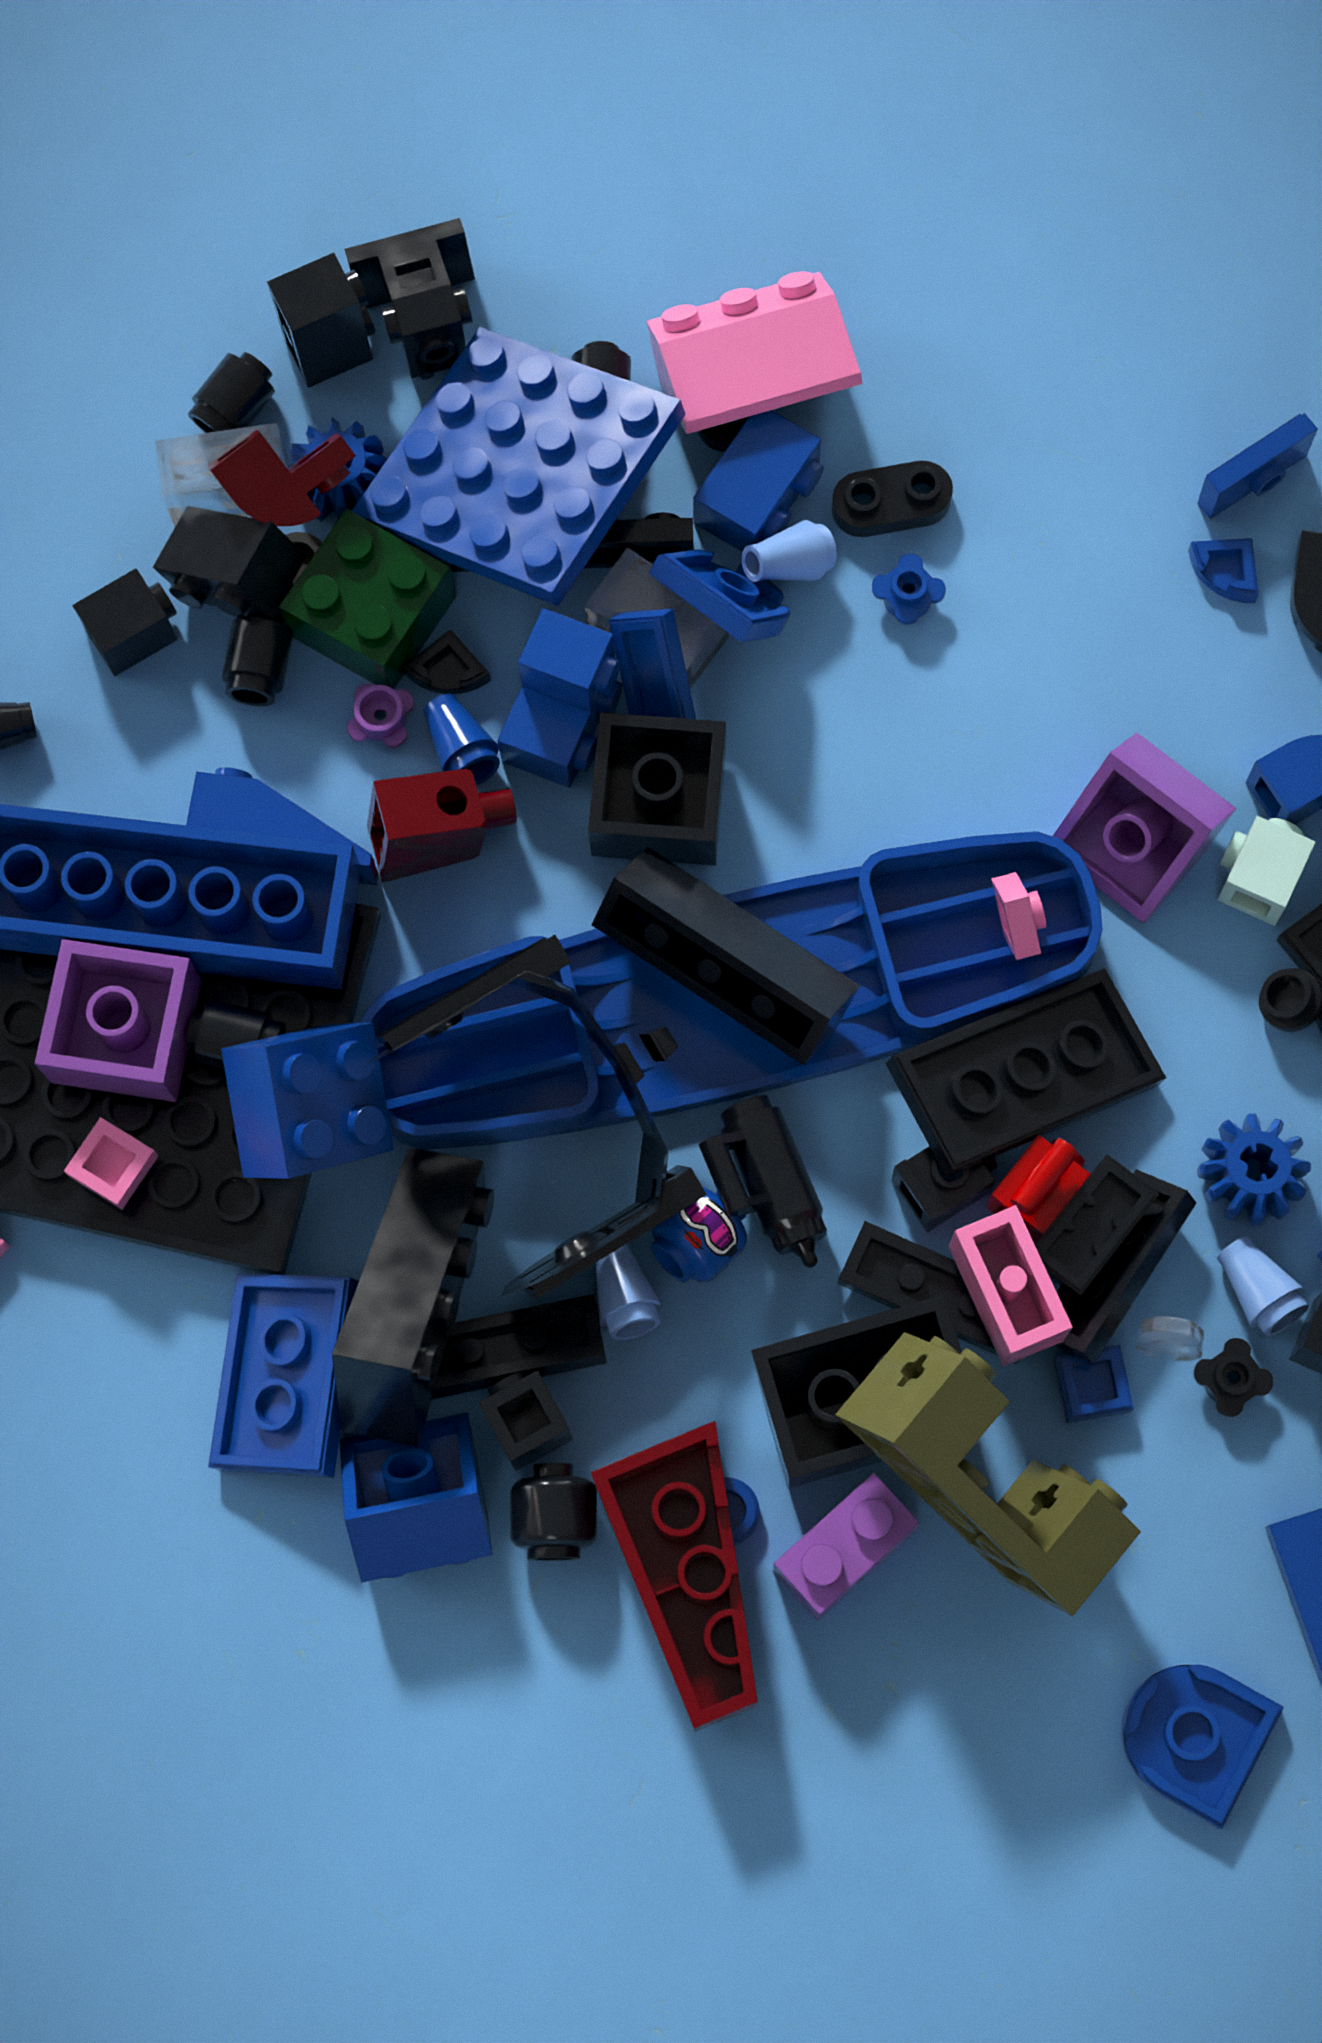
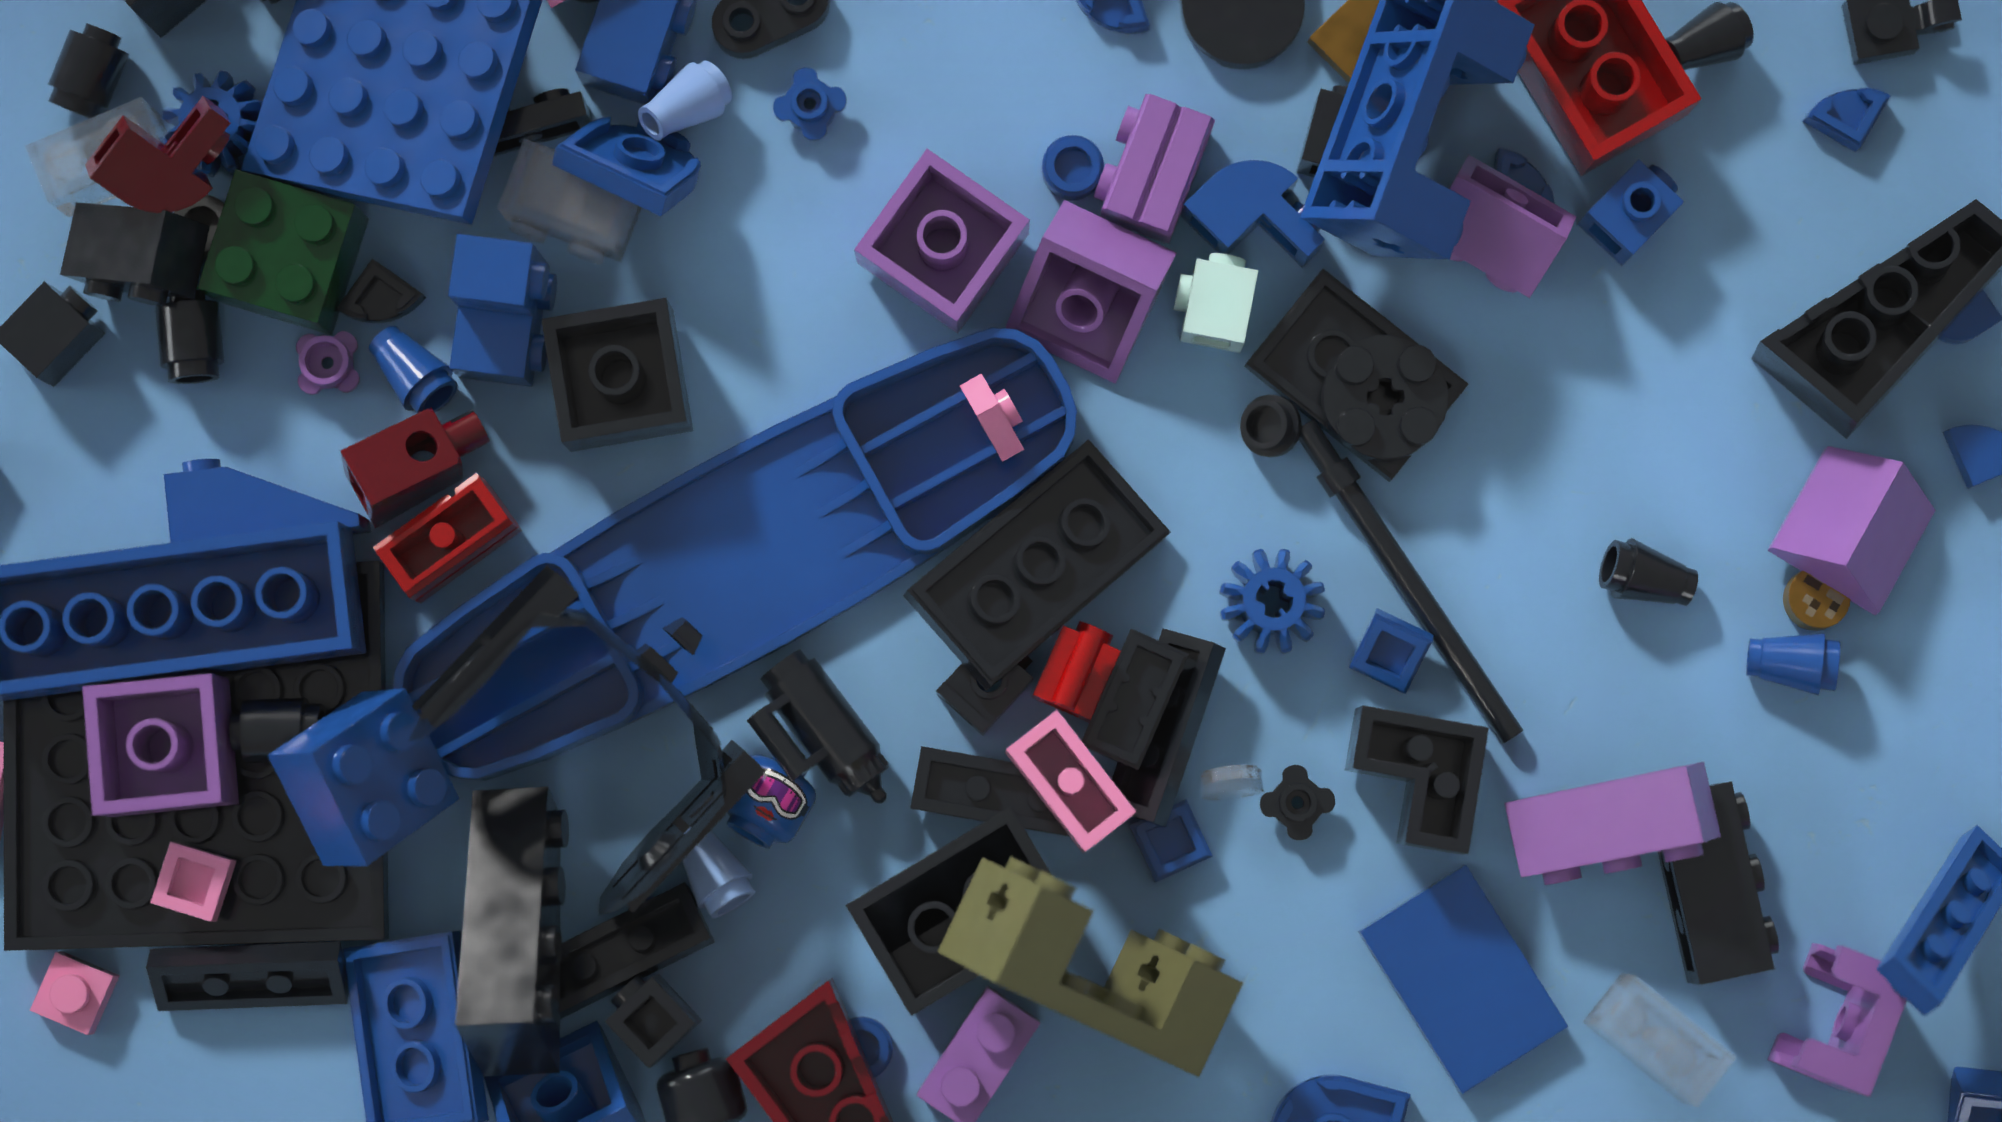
camera: 20 degrees left, 10 degrees up
(136, 1274) = (248, 976): none -> black plate
(451, 901) = (447, 539): none -> red brick
(652, 664) = (581, 256): blue tile -> none
(725, 955) = (724, 527): black brick -> none
(1007, 740) = (942, 240): none -> medium lavender brick
(1150, 708) = (1072, 167): none -> blue tile
(1235, 724) = (1155, 167): none -> medium lavender brick
(1263, 1288) = (1305, 711): light blue cone -> none

